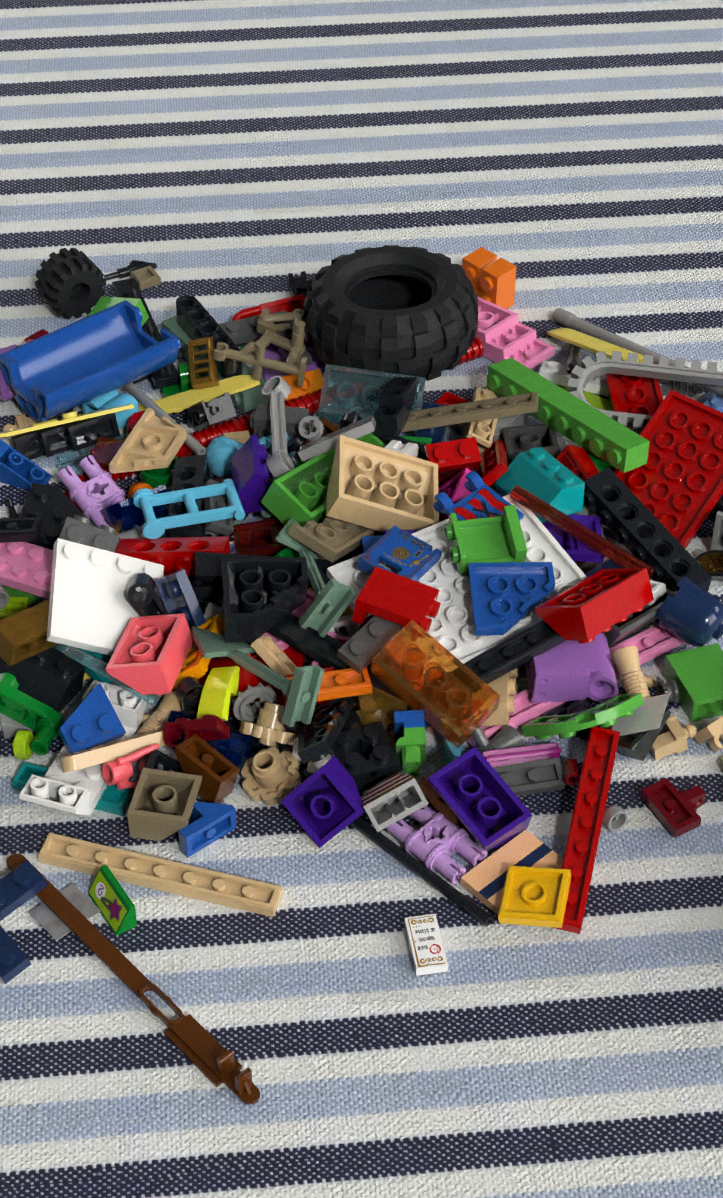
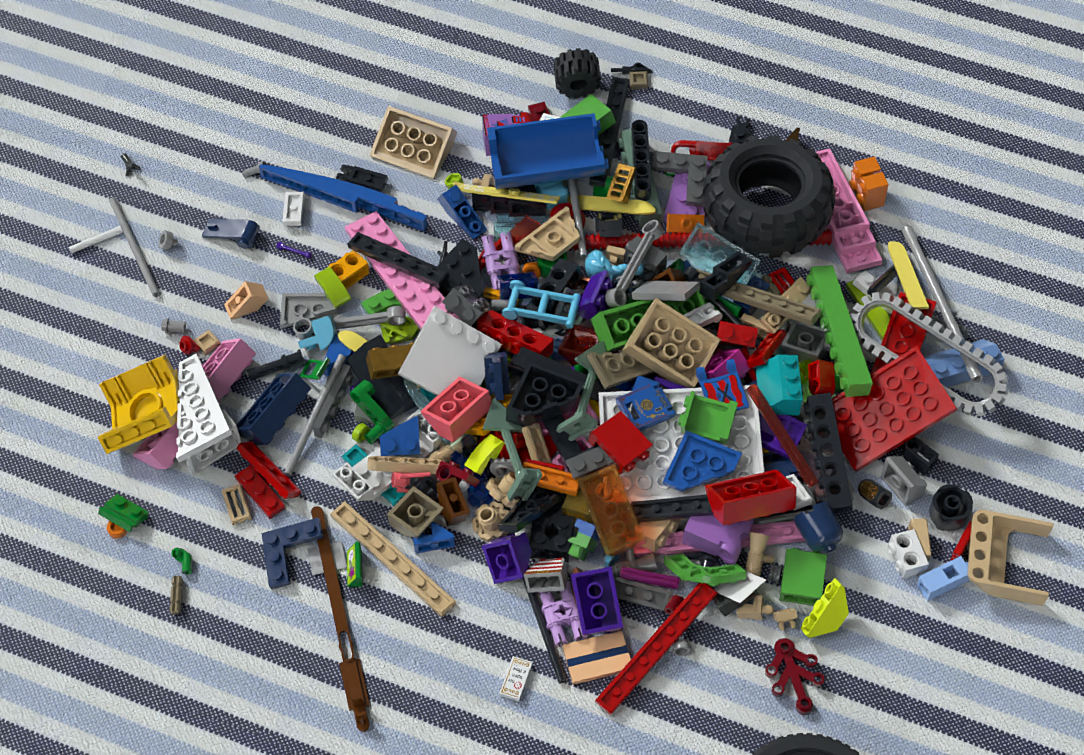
camera: 30 degrees right, 15 degrees up
(148, 602) = (471, 367): black piece -> none
(268, 329) = (690, 193): dark tan piece -> none
(308, 420) = (662, 272): light grey bush -> none
(534, 896) = (594, 680): yellow plate -> none
(674, 807) = (724, 658): dark red hinge -> none

